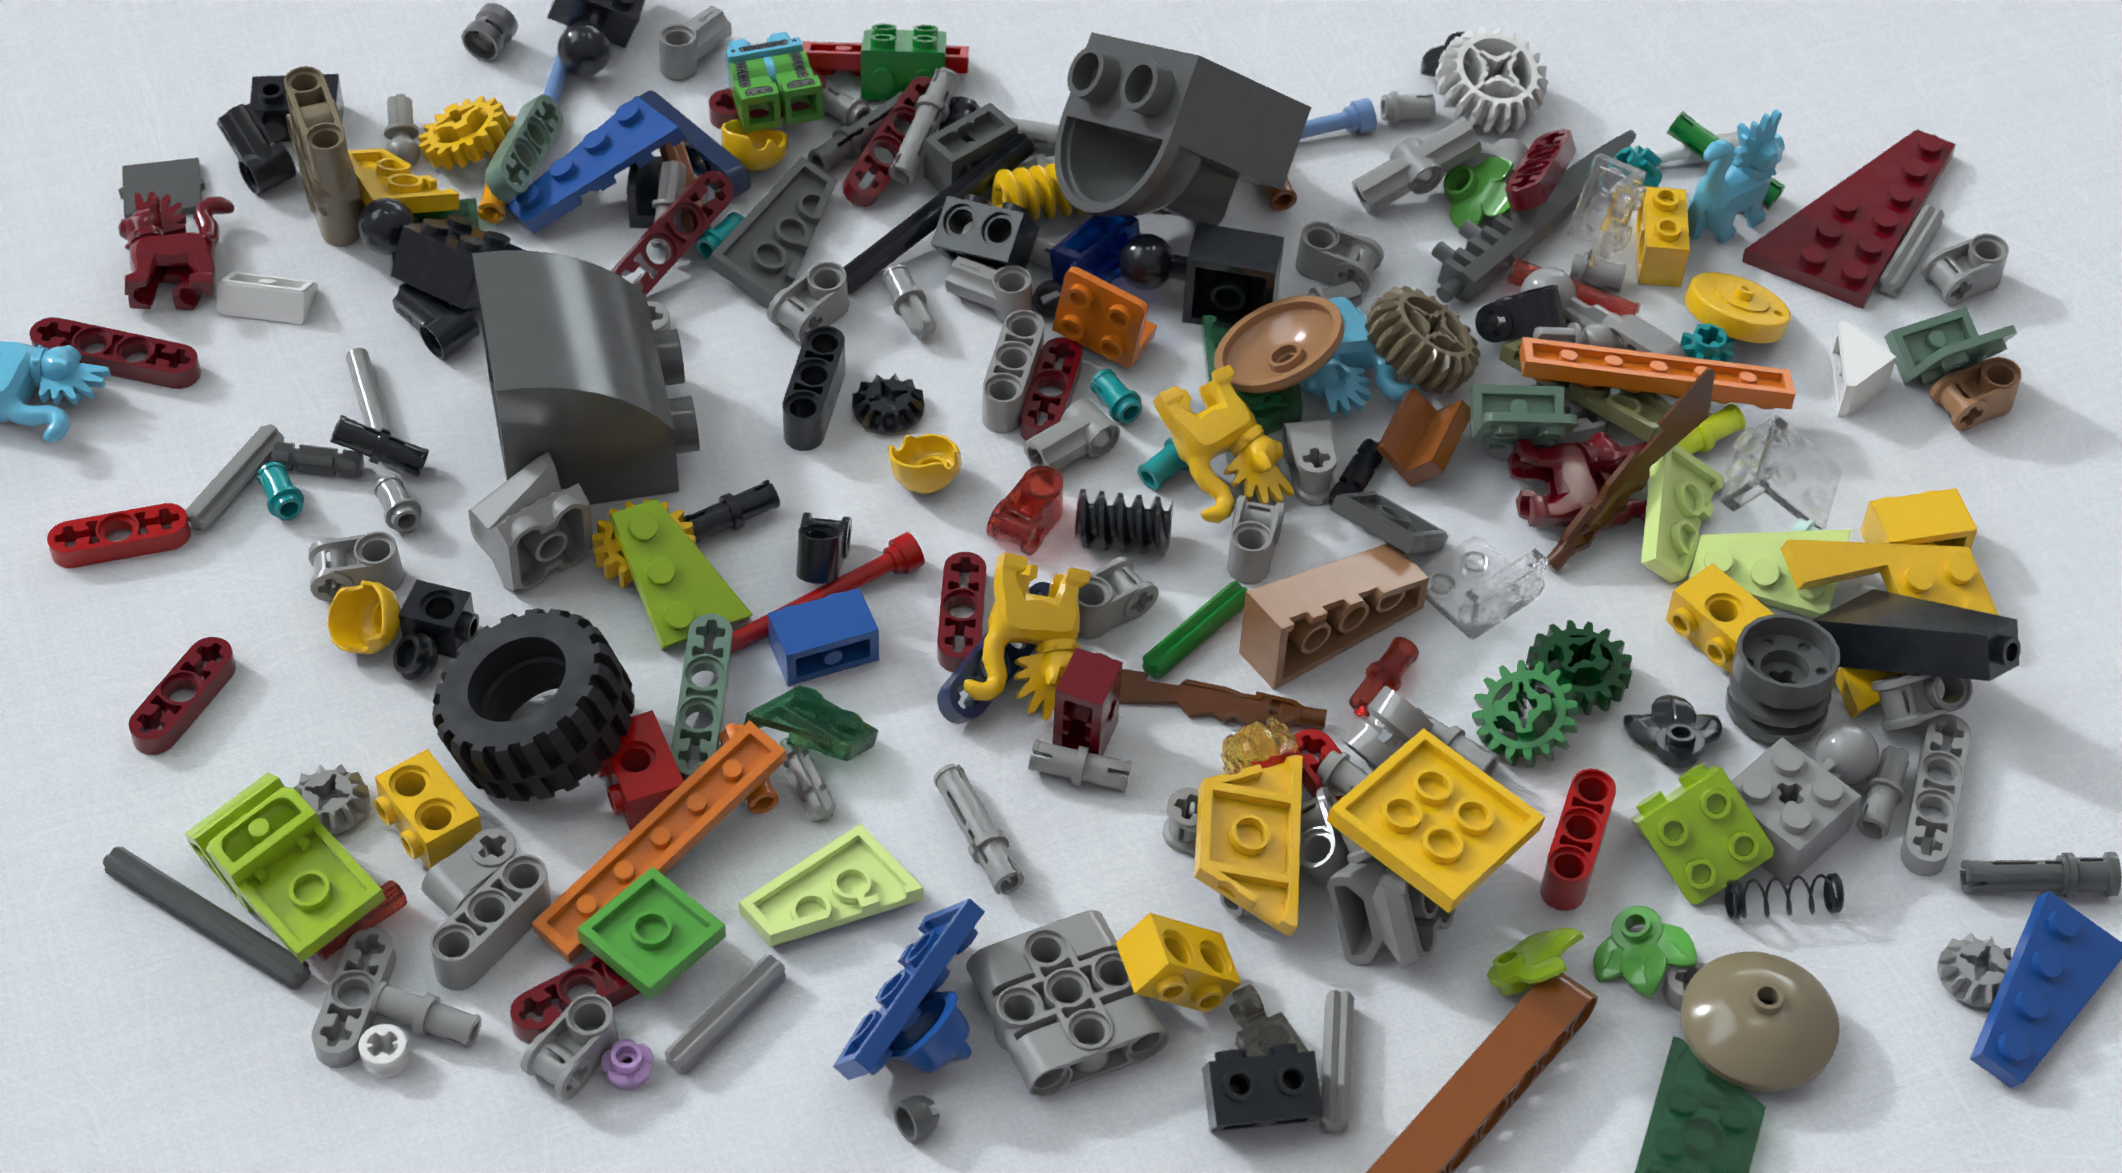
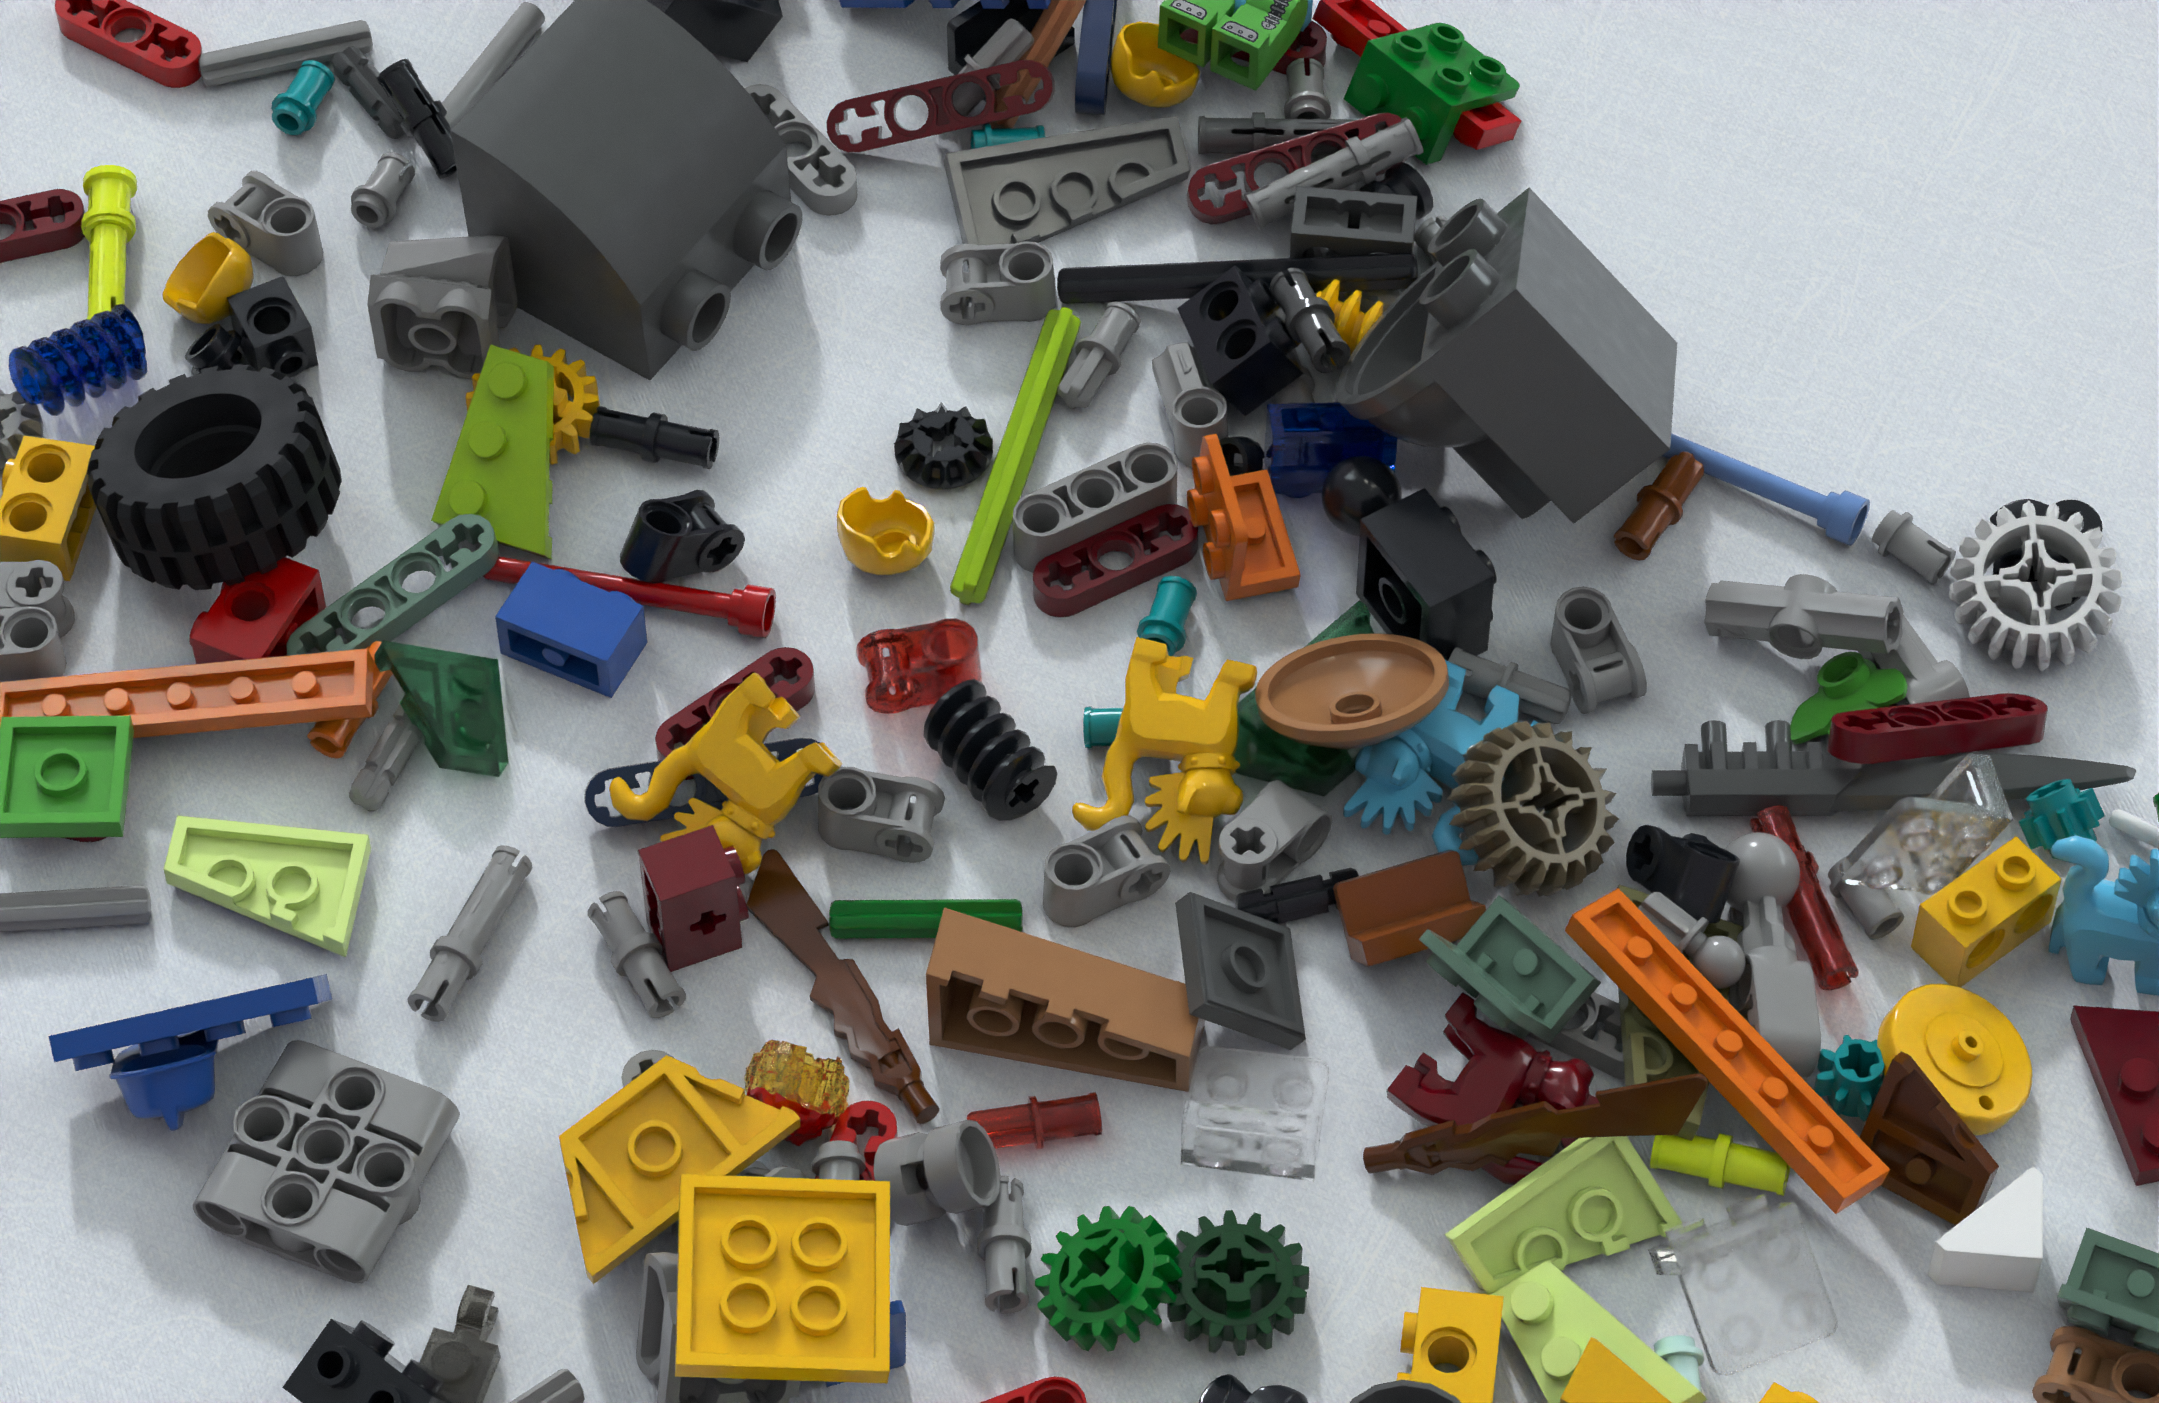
camera: 50 degrees right, 5 degrees up
(257, 641) = (108, 229): none -> neon yellow pin
(349, 715) = (80, 360): none -> clear blue piece
(814, 388) = (884, 372): black beam -> none
(915, 1117) = (76, 1144): dark grey hinge -> none
(933, 380) = (1015, 456): none -> lime axle
(1024, 192) = (1310, 320): none -> dark grey pin
(1080, 432) = (1079, 626): light grey piece -> none
(1178, 963) = (451, 1197): yellow brick -> none
(1783, 346) = (1926, 1145): none -> reddish brown wing

